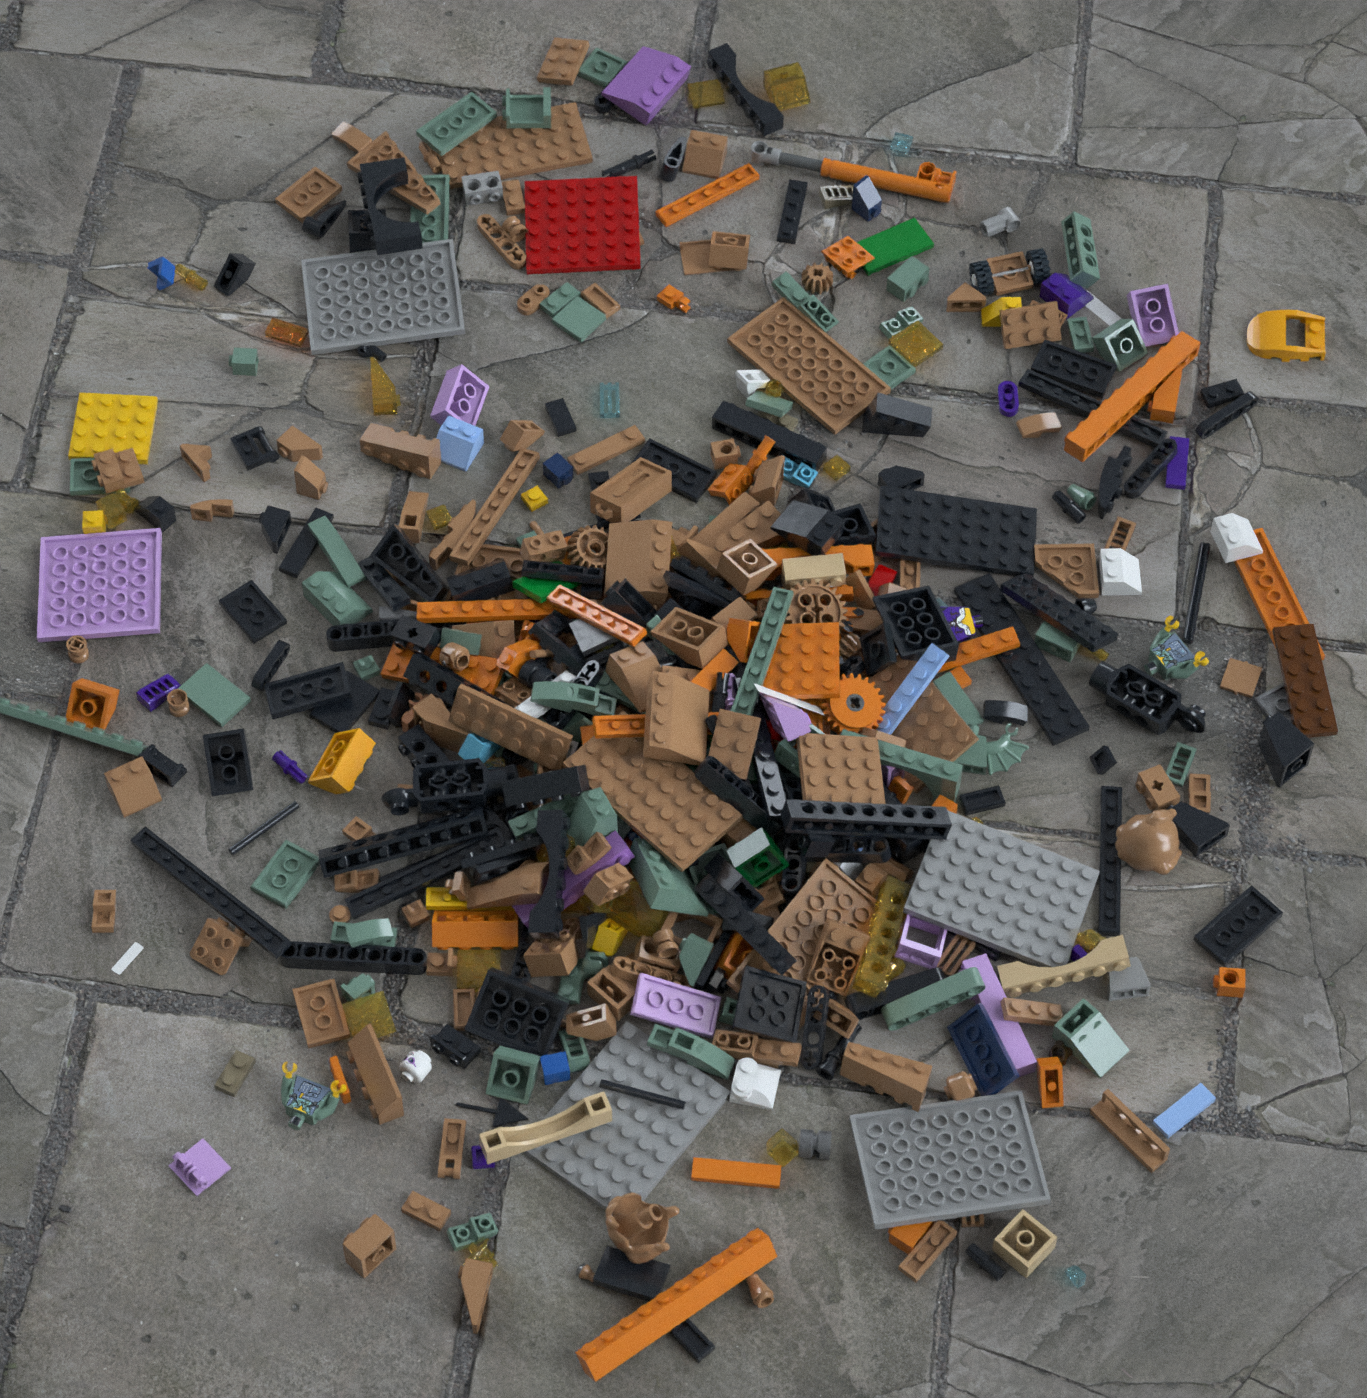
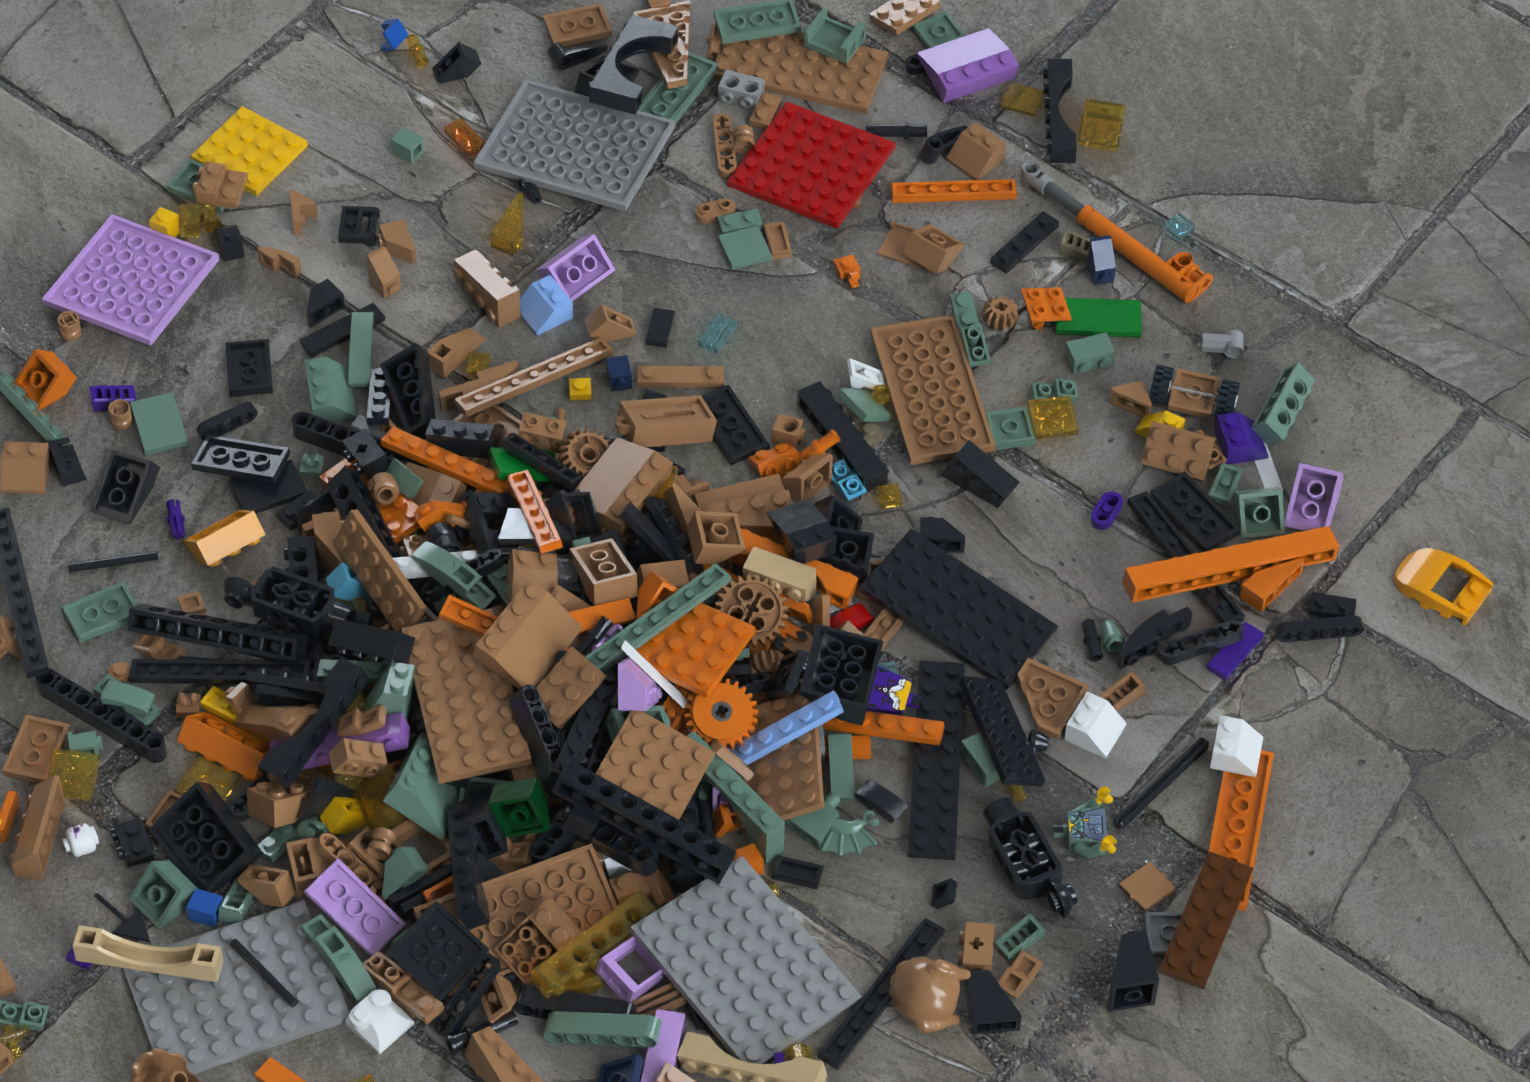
camera: 30 degrees right, 5 degrees down
(441, 963) = (177, 761): medium nougat bracket -> none
(452, 1148) = (59, 931): medium nougat plate -> none
(1037, 424) = (1116, 547): medium nougat slope -> none

